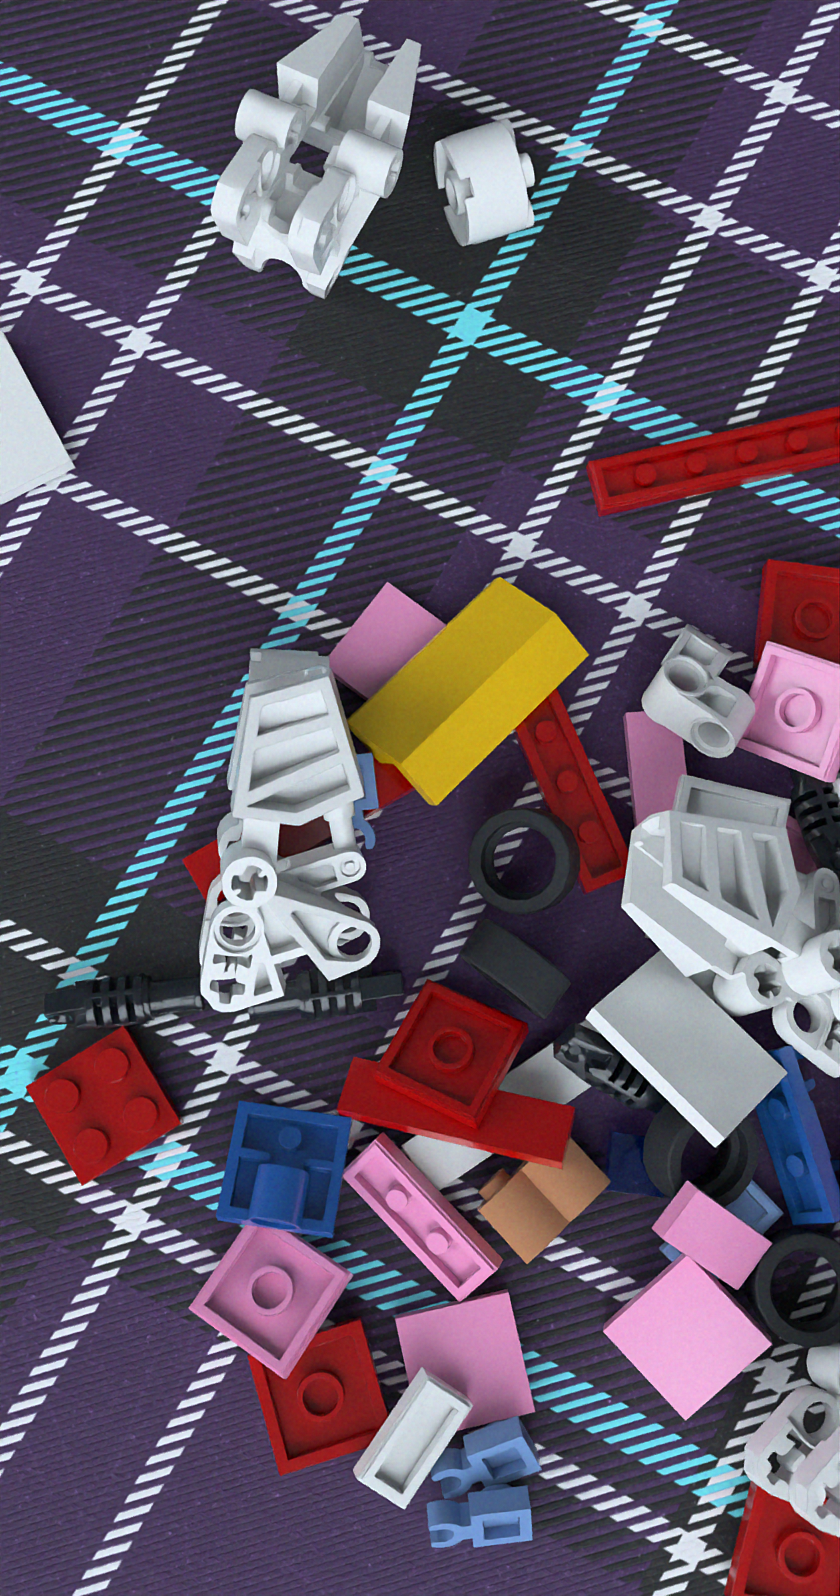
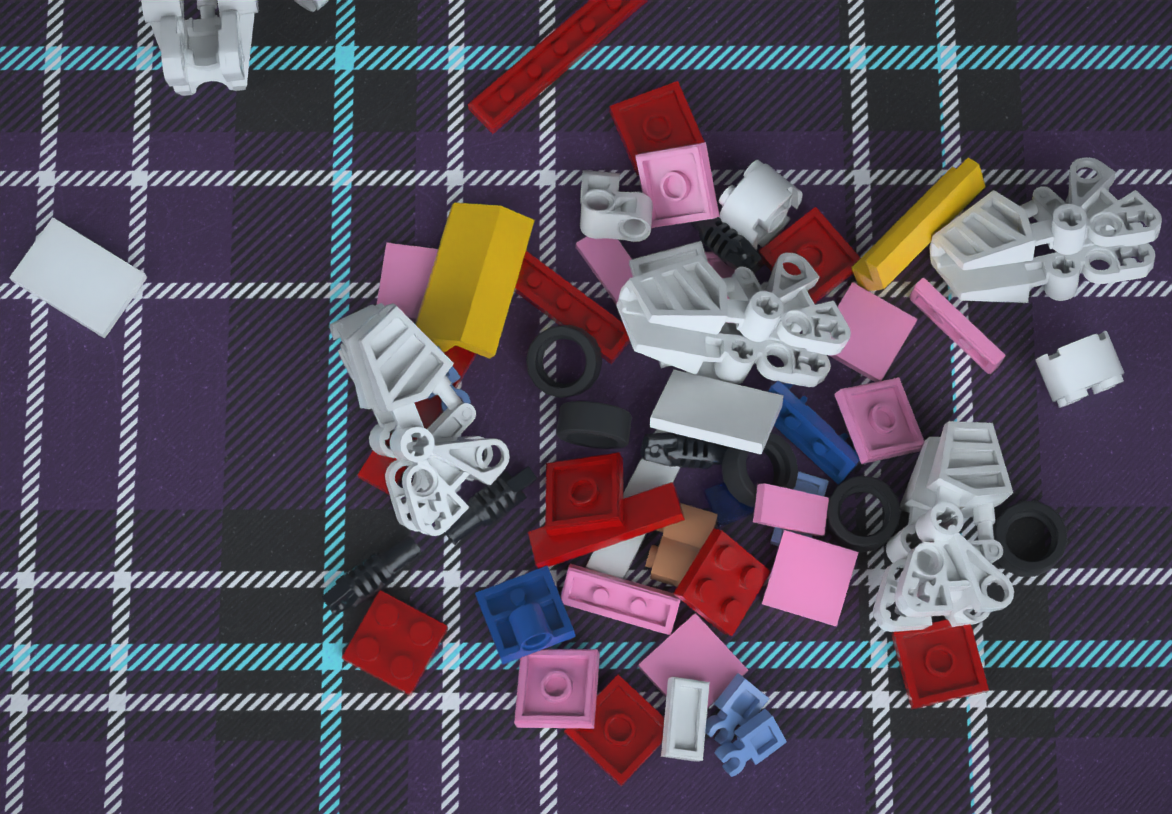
camera: 30 degrees left, 5 degrees down
(565, 1277) = (722, 582): none -> red plate

